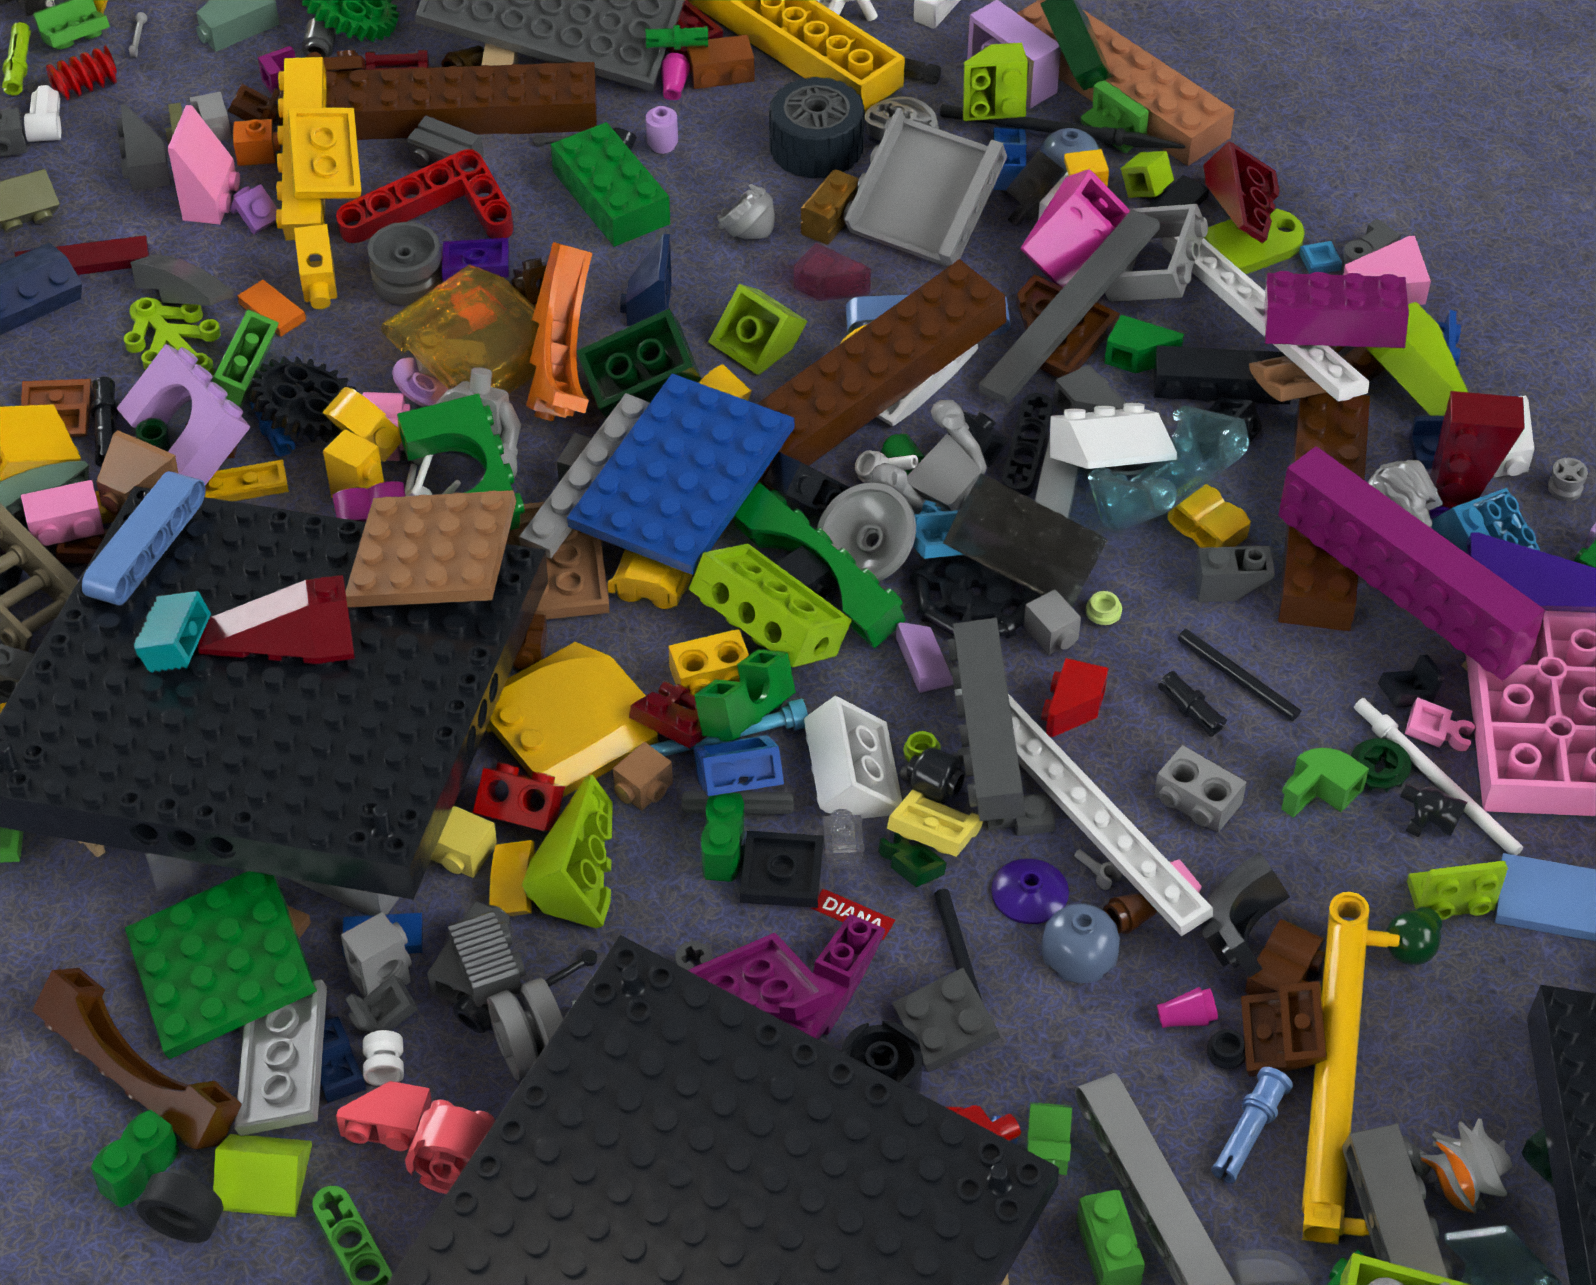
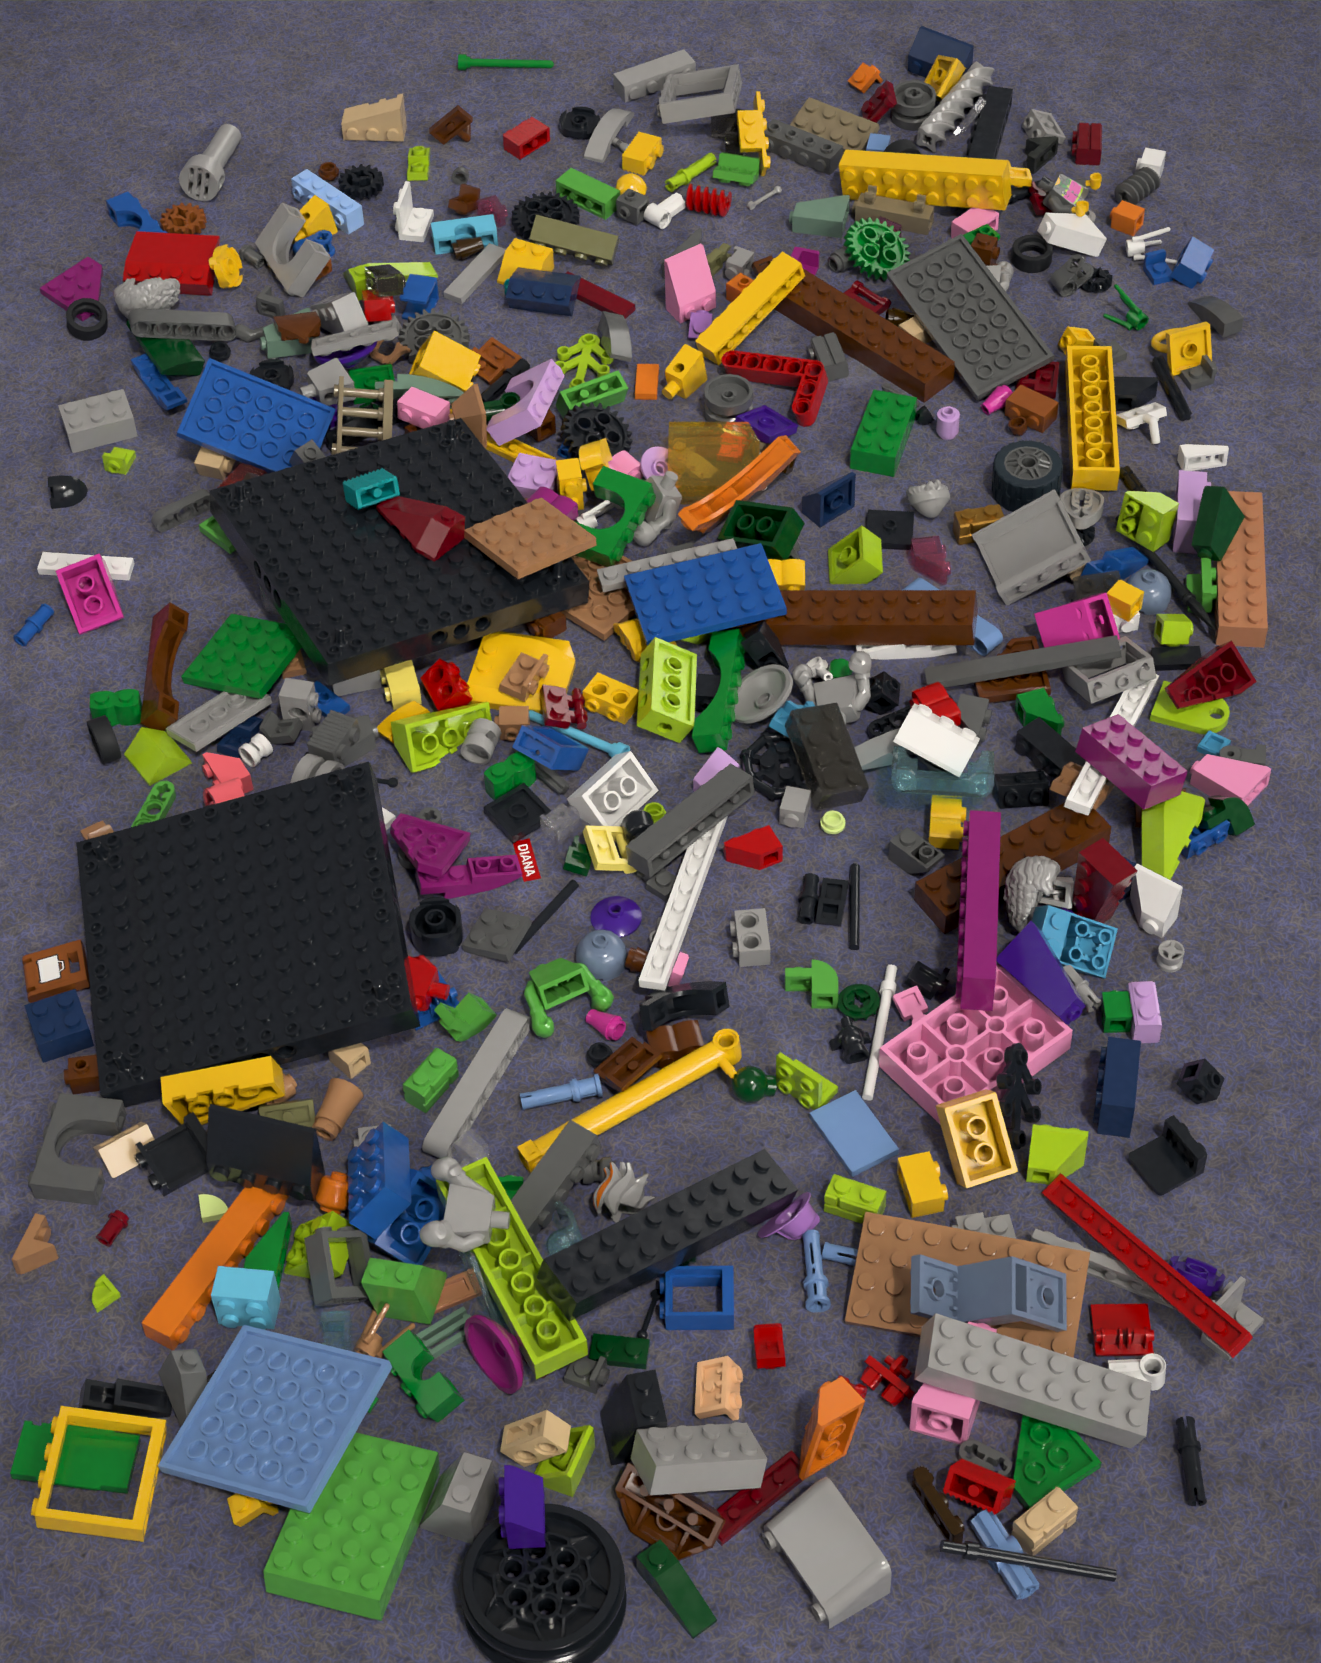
camera: 50 degrees right, 0 degrees up
(143, 538) = (421, 440): medium blue beam -> none
(296, 486) = (533, 472): none -> lavender brick
(324, 153) = (747, 315): yellow plate -> none
(345, 61) = (828, 274): reddish brown plate -> none
(597, 712) = (524, 676): none -> medium nougat bracket
(638, 825) = (480, 741): none -> light grey wheel
(677, 37) = (1013, 377): green pin -> none
(729, 80) = (1014, 425): none -> reddish brown hinge
(733, 706) = (616, 725): green arch -> none
(746, 267) = (892, 527): none -> black plate
(1044, 400) = (938, 701): none -> red brick
(1096, 1013) = (557, 983): none -> bright green torso
(1221, 693) = (832, 902): none -> black slope
(1439, 301) = (1230, 809): none -> dark green brick

